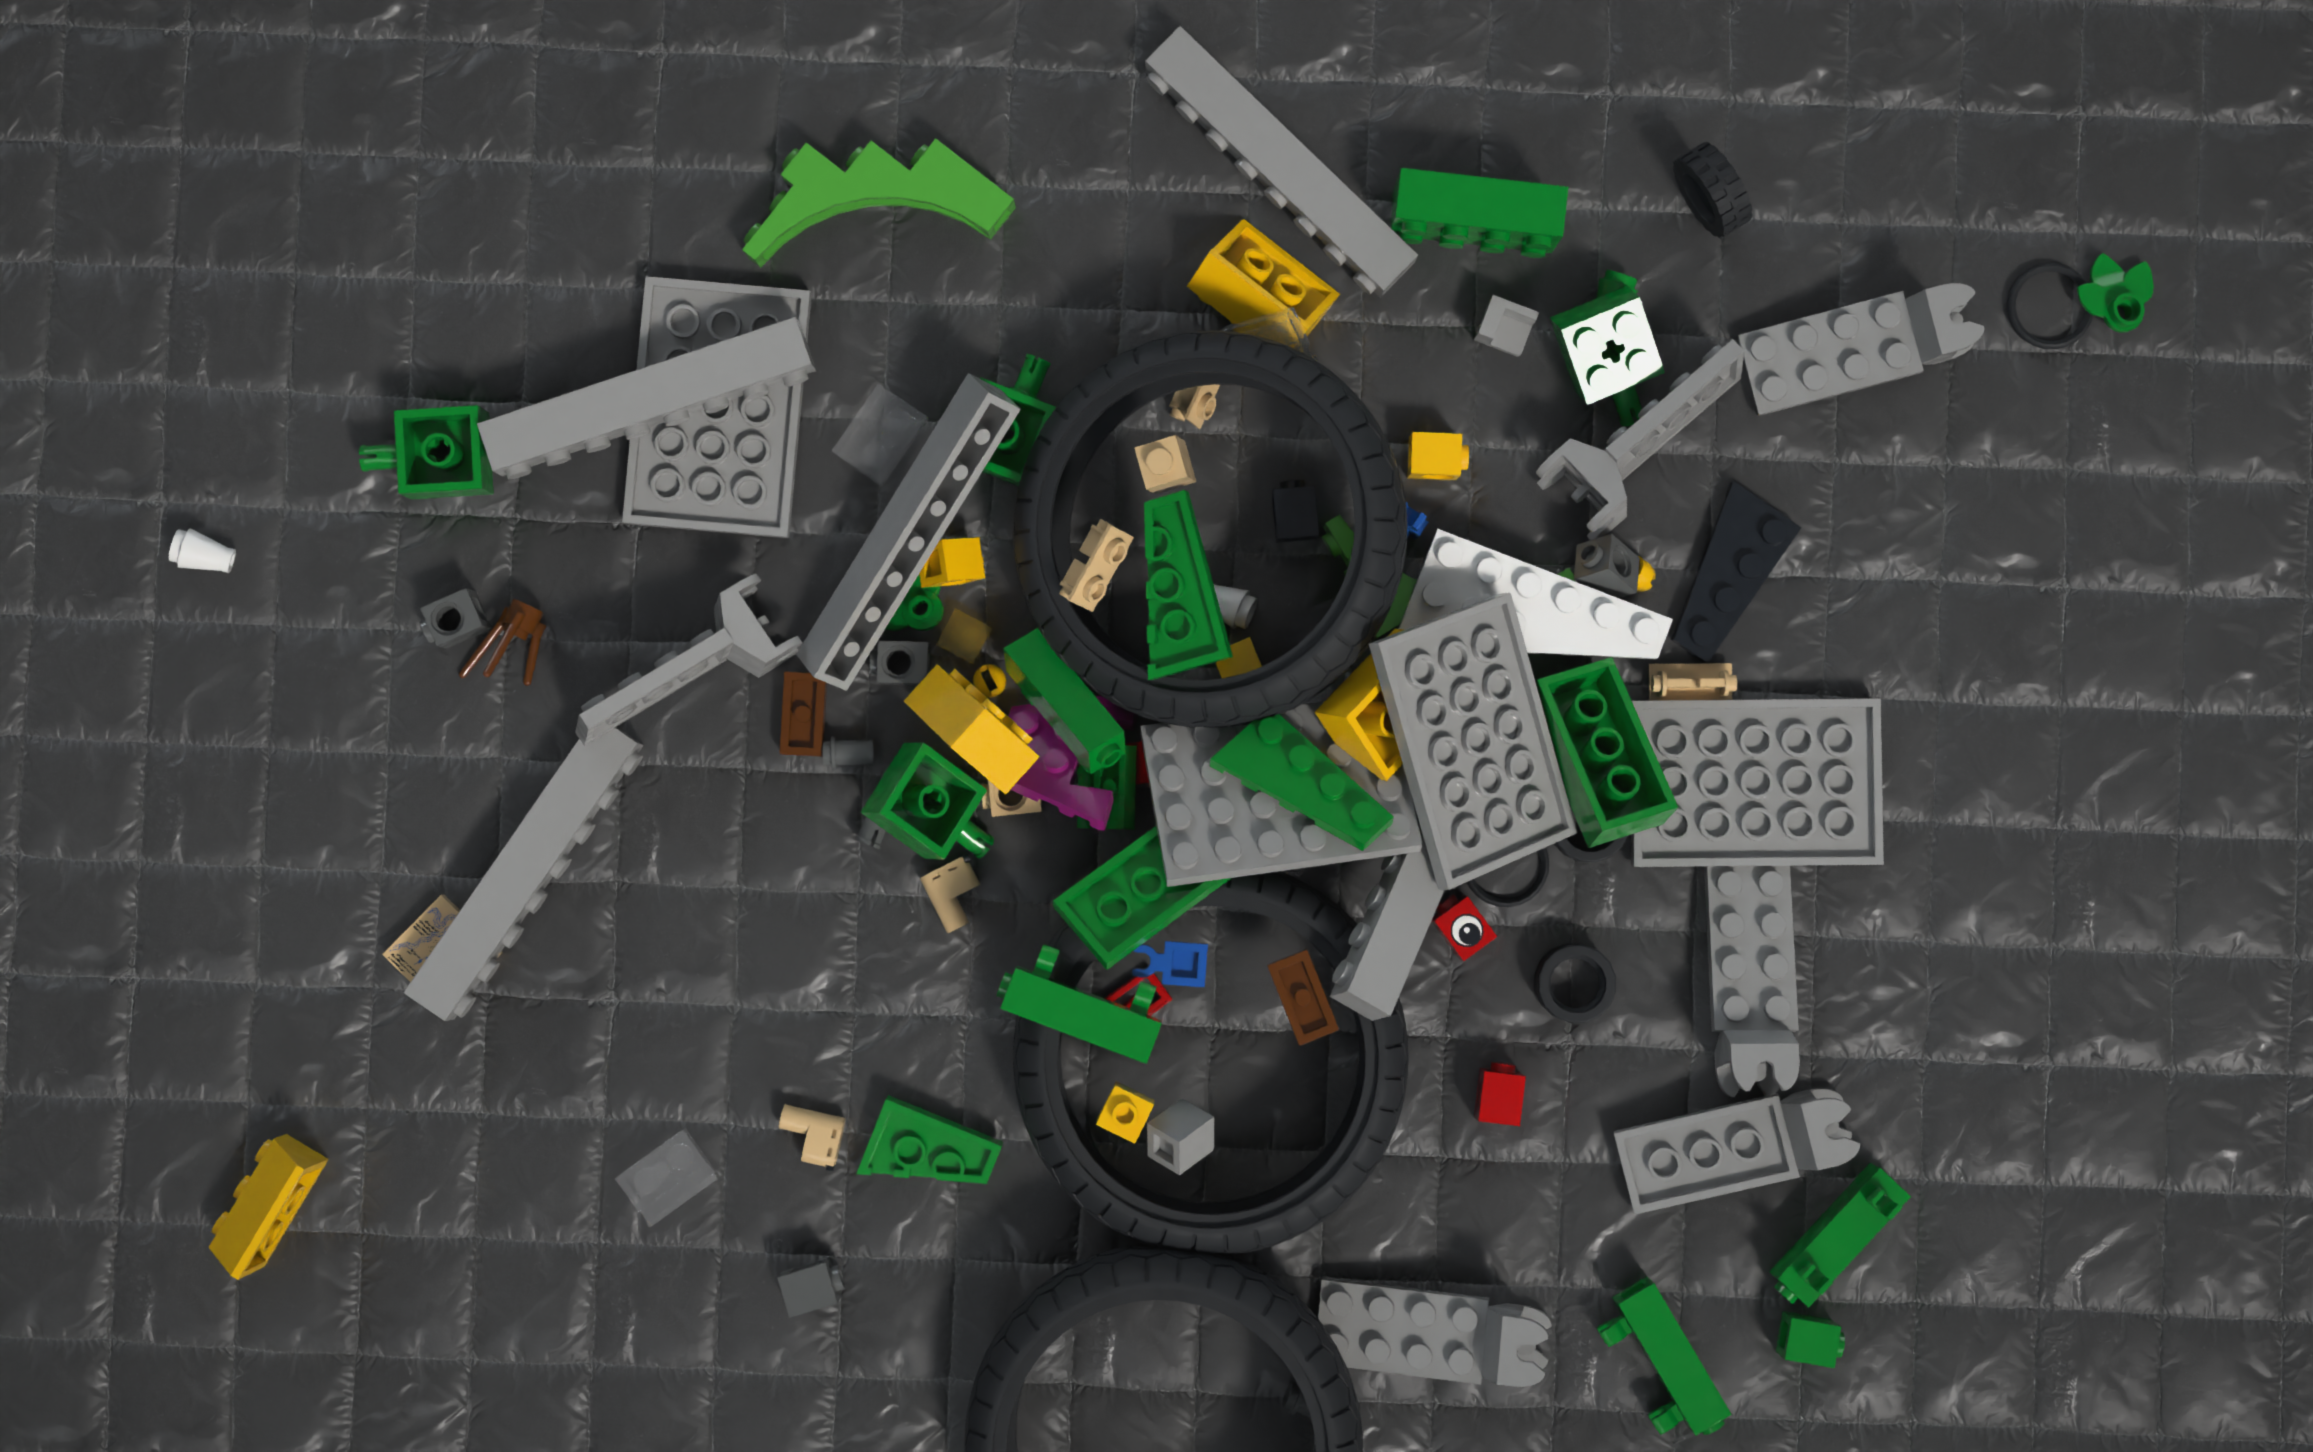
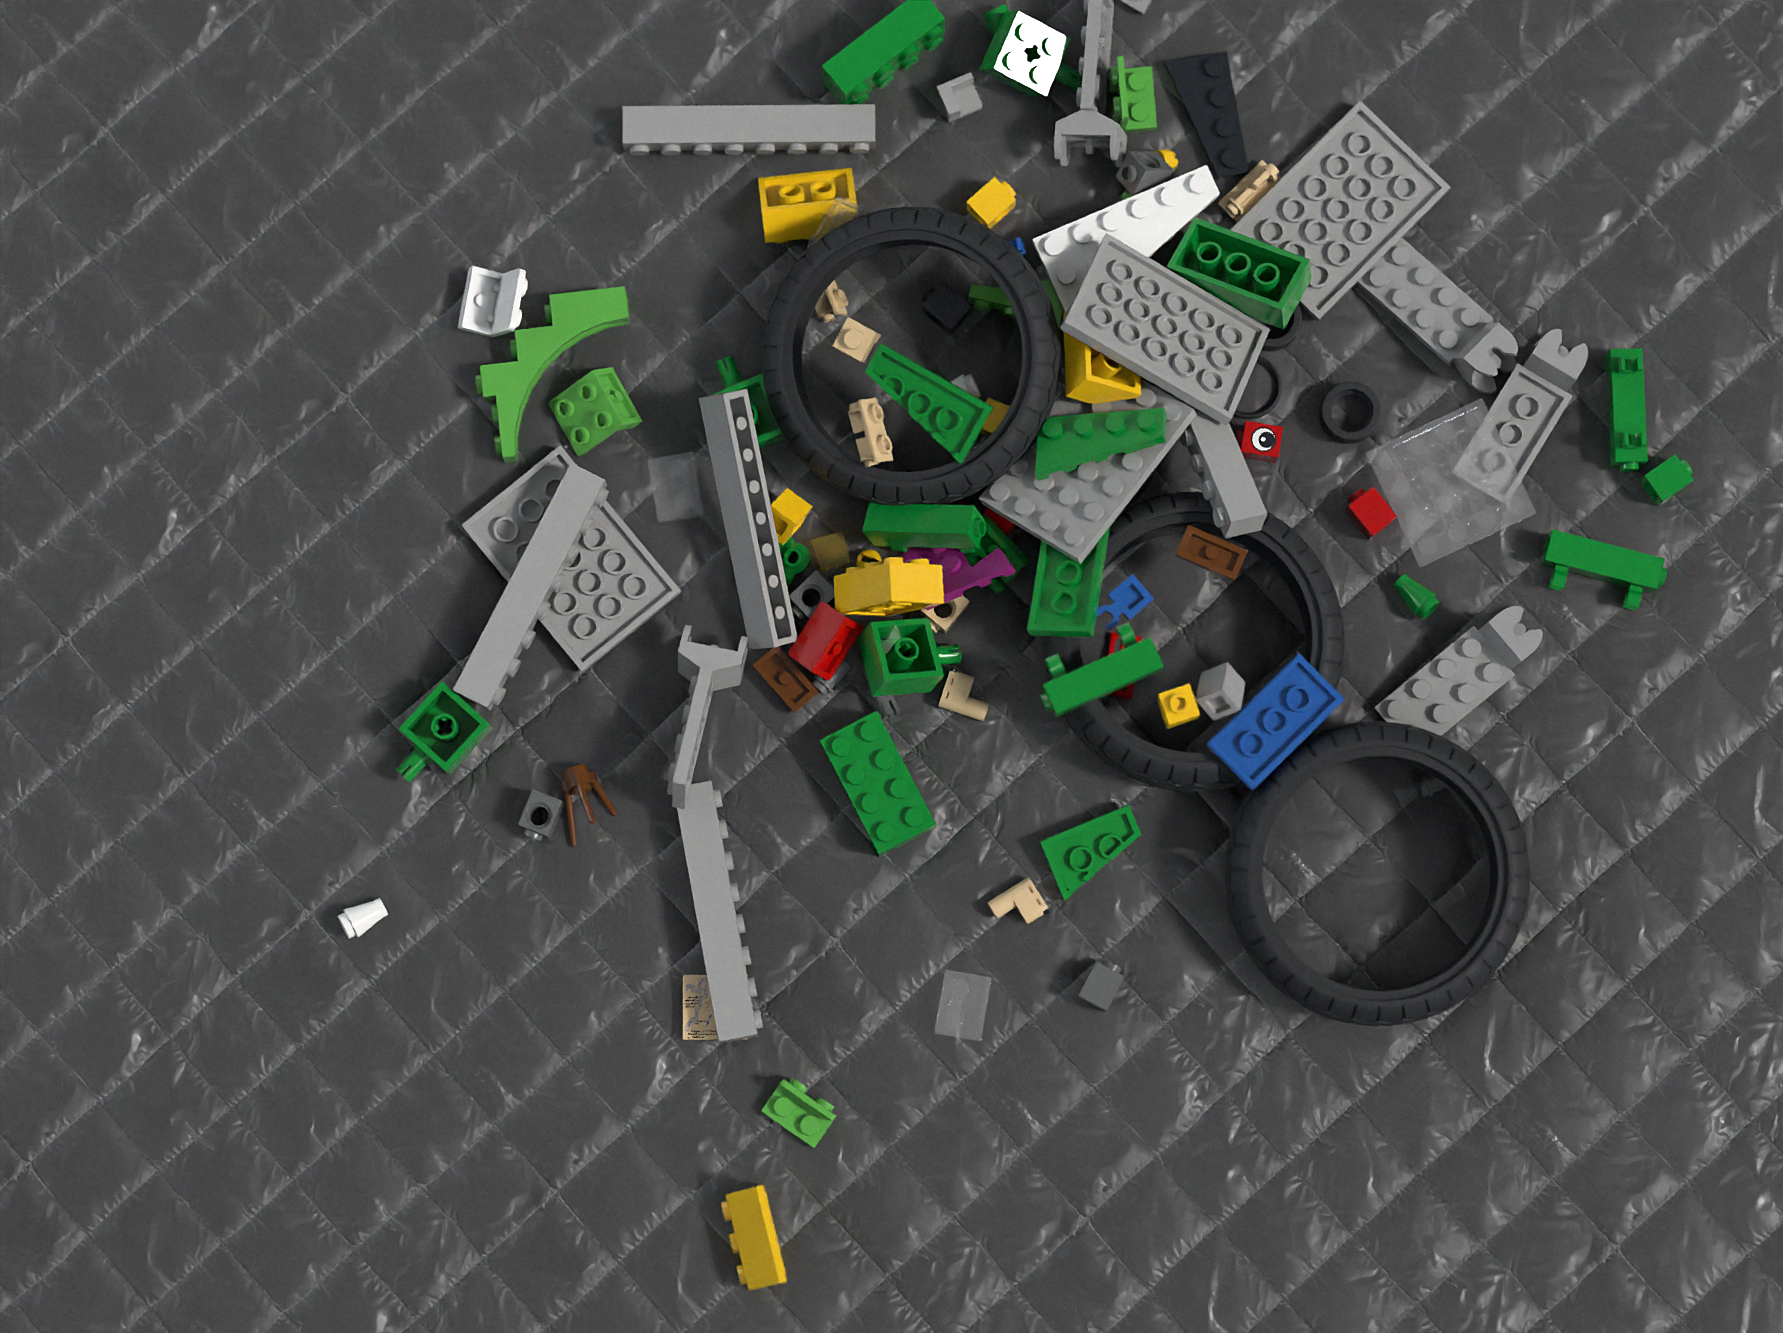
camera: 45 degrees left, 5 degrees down
(423, 1126) = (799, 1112): none -> bright green bracket
(789, 897) = (877, 783): none -> green brick
(869, 717) = (825, 641): none -> red panel
(876, 289) = (594, 409): none -> bright green bracket
(877, 92) = (492, 301): none -> white bracket
(1204, 1216) = (1275, 722): none -> blue tile
(1463, 1215) = (1416, 597): none -> green cone
(1603, 1143) = (1450, 482): none -> clear plate
(1669, 489) = (1134, 99): none -> bright green bracket

